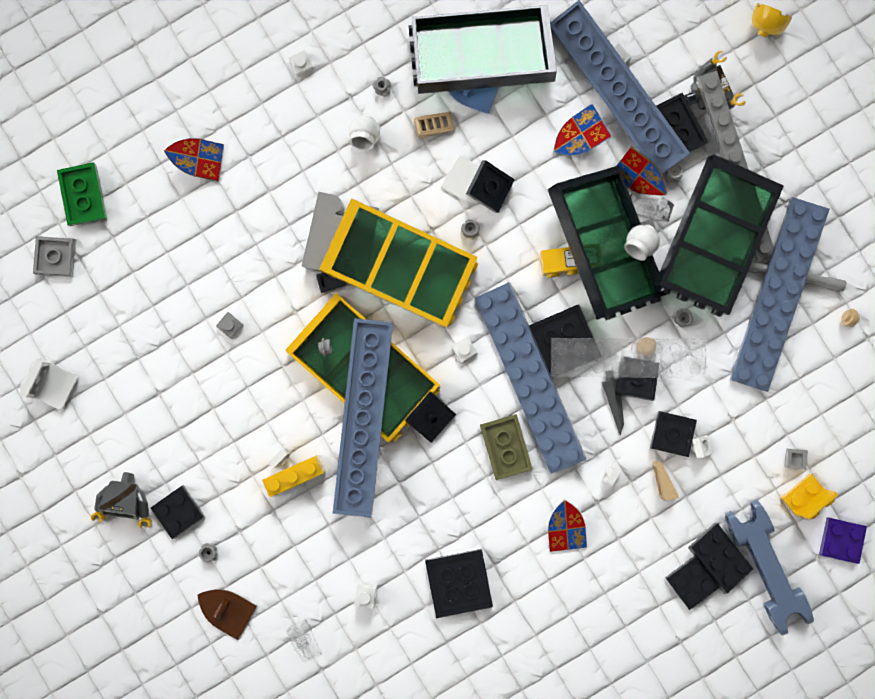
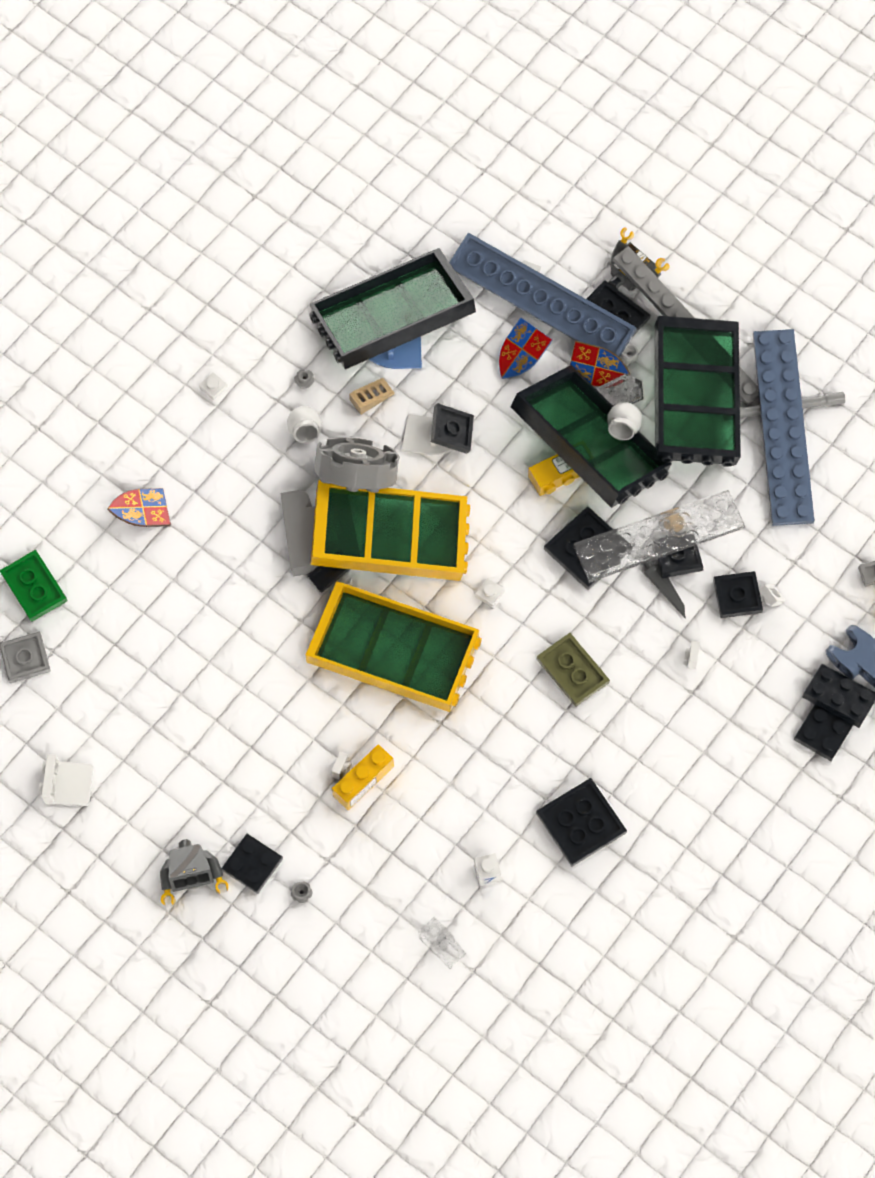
camera: 20 degrees left, 20 degrees down
(226, 610) = (344, 947): reddish brown shield -> none
(229, 325) = (236, 657): light grey plate -> none
(325, 347) = (346, 635): light grey plate -> none
(362, 418) = (413, 688): sand blue plate -> none
(391, 194) = (356, 464): none -> light grey piece
(430, 417) = (482, 666): black plate -> none
(465, 229) = (448, 471): light grey plate -> none
(530, 378) = (570, 594): sand blue plate -> none
(566, 528) = (669, 724): shield -> none
(665, 486) = (751, 645): tan slope -> none
(688, 318) = (699, 477): light grey plate -> none
(769, 20) = (660, 189): yellow cylinder -> none
(850, 318) = (863, 423): tan plate -> none

